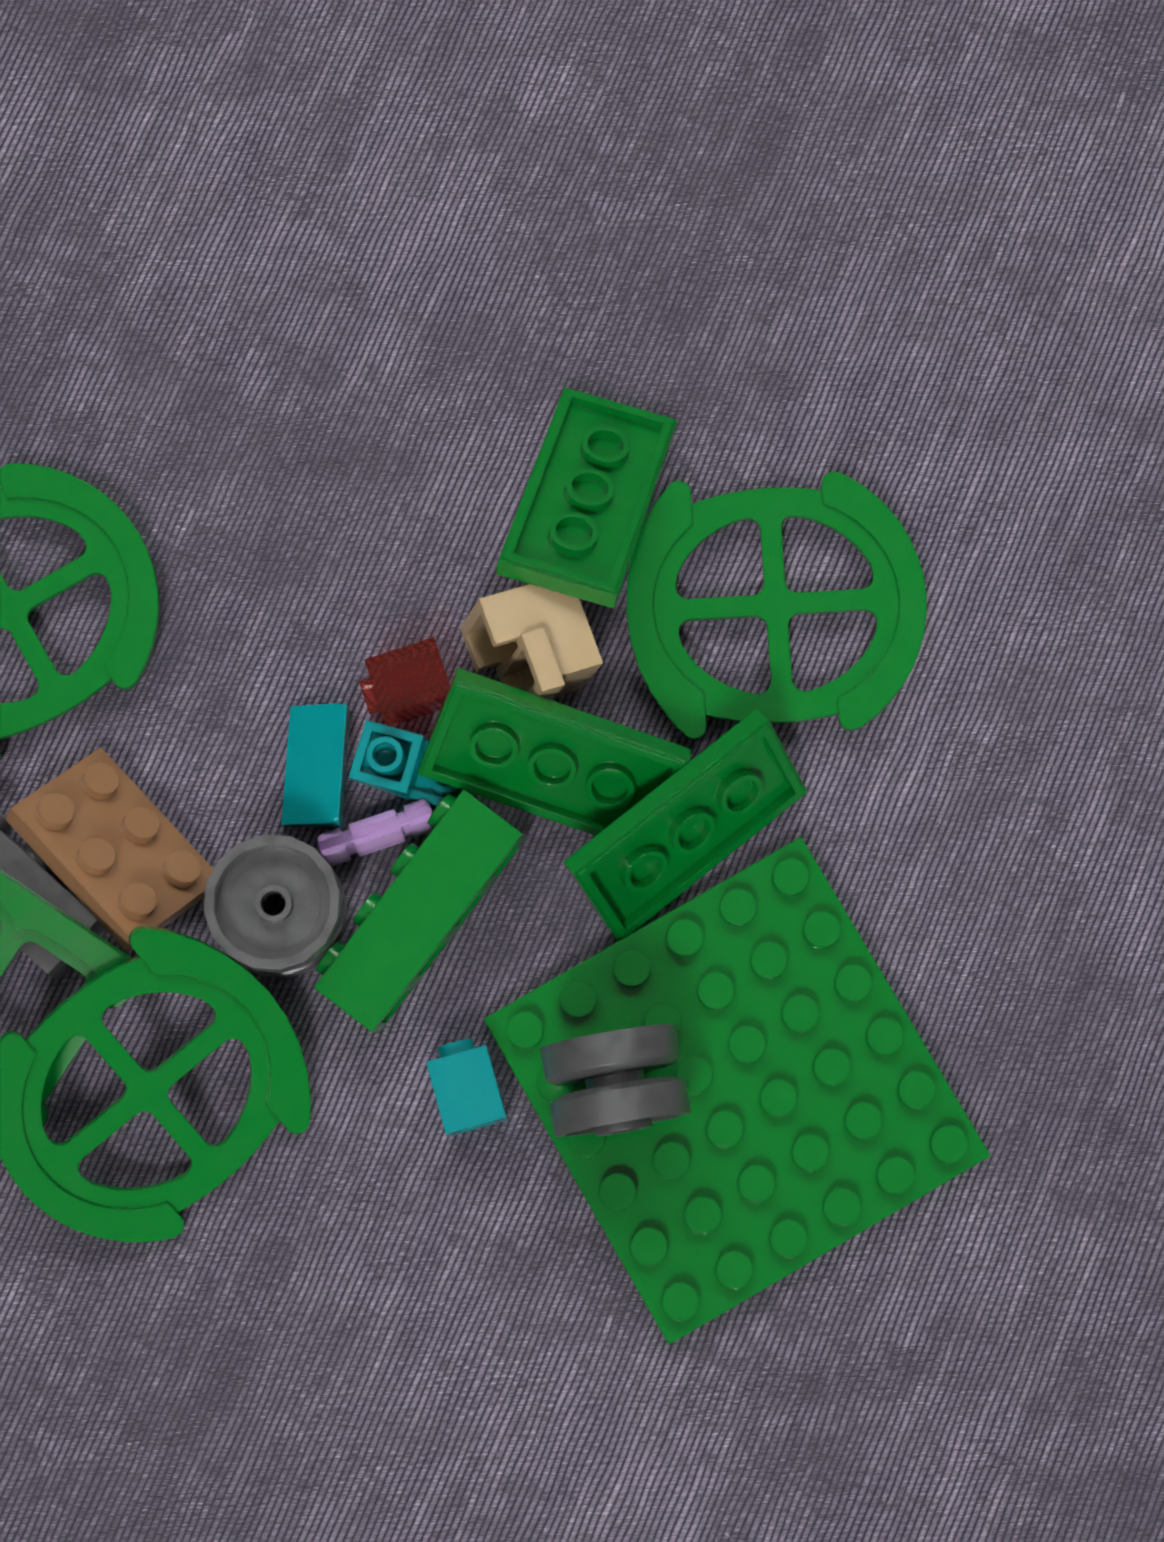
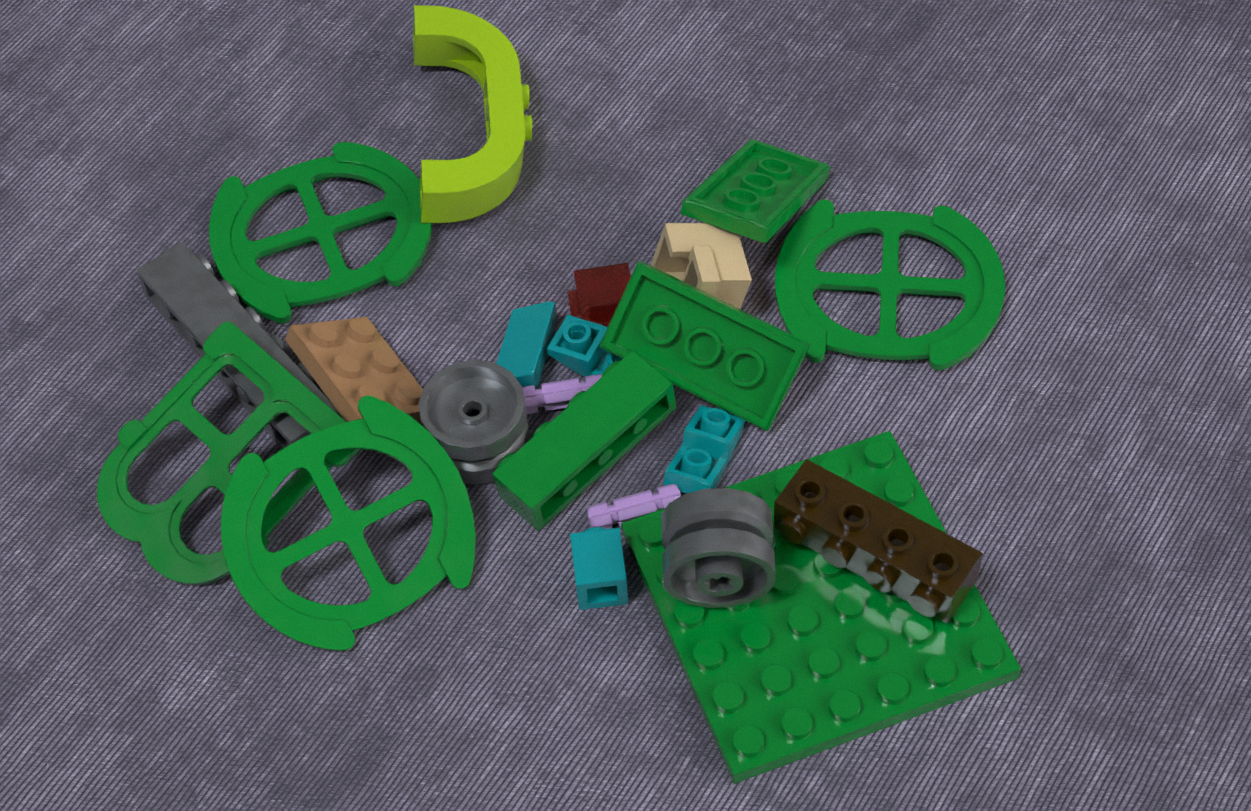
camera: 10 degrees right, 25 degrees down
(154, 275) = (483, 180): none -> lime arch
(495, 991) = (631, 506): none -> lavender axle
(564, 916) = (704, 450): none -> teal slope
(686, 825) = (800, 402): green tile -> none
(805, 1025) = (876, 541): none -> dark brown brick

